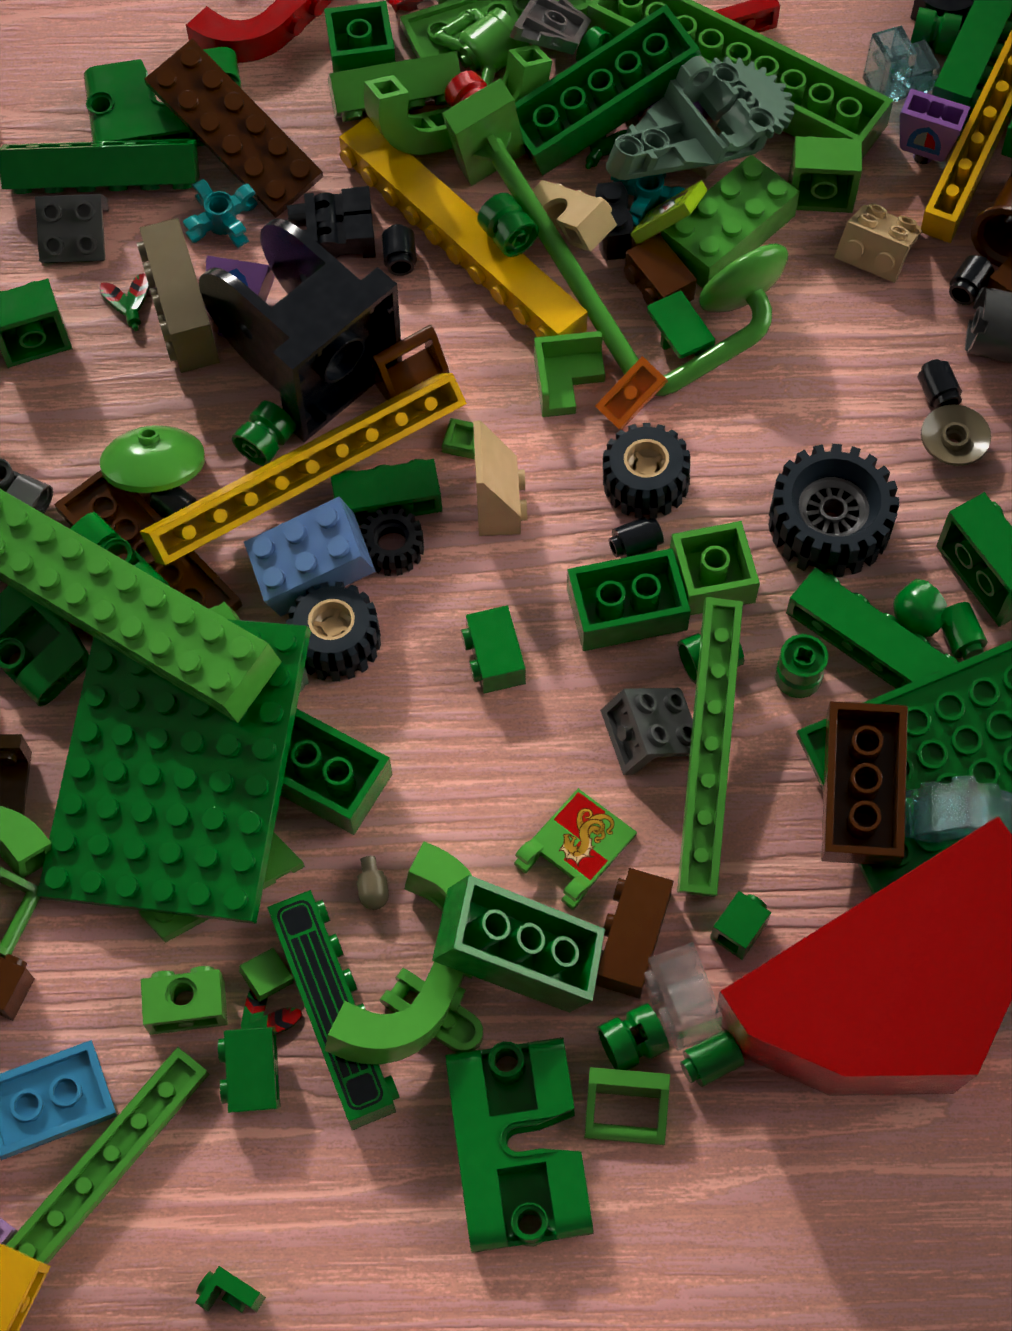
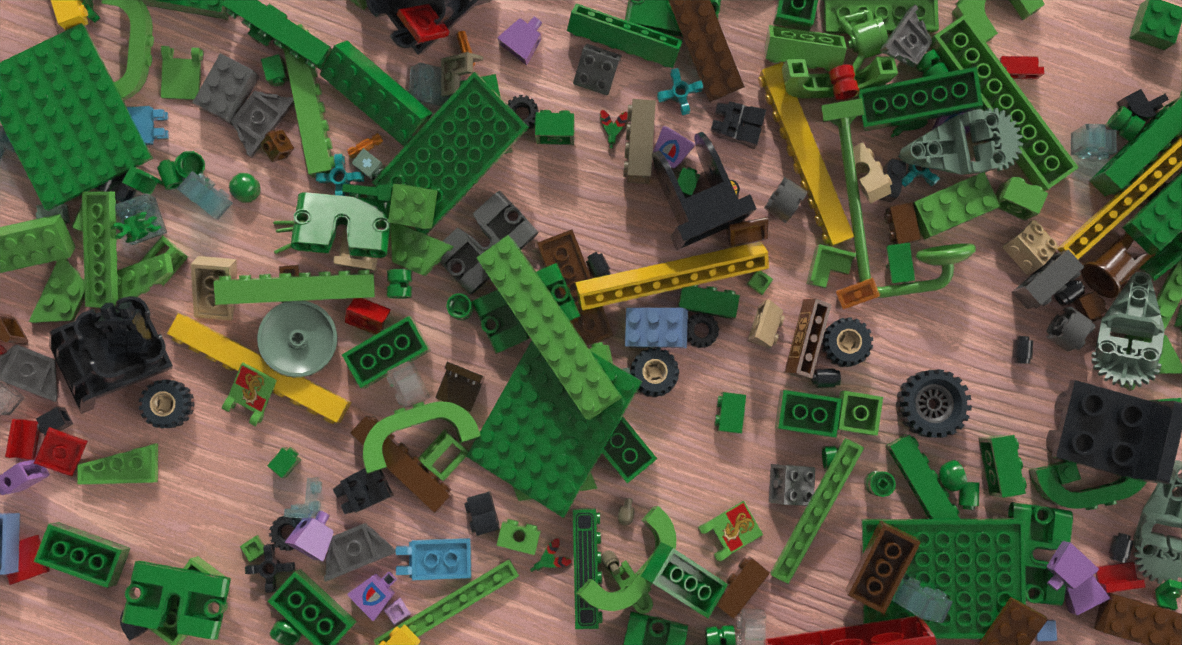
camera: 20 degrees right, 20 degrees up
(101, 984) = (483, 513): none -> black brick
(152, 459) = (594, 244): bright green dish -> none
(250, 1069) = (539, 584): green brick -> none
(265, 431) = (658, 242): green wheel -> none
(266, 974) = (561, 538): bright green tile -> none
(374, 980) = (611, 562): none -> dark tan cylinder
(399, 249) = (768, 153): black brick -> none
(452, 298) = (785, 200): none -> dark grey brick
(507, 224) = (832, 170): green wheel -> none
(577, 486) = (807, 338): none -> reddish brown brick
(669, 212) = (923, 193): lime tile -> none
(741, 924) = (794, 602): green brick -> none
(927, 267) = (1048, 280): none -> dark grey brick
(930, 126) = (1093, 194): medium lavender torso -> none
(959, 424) = (1026, 383): dark tan dish -> none

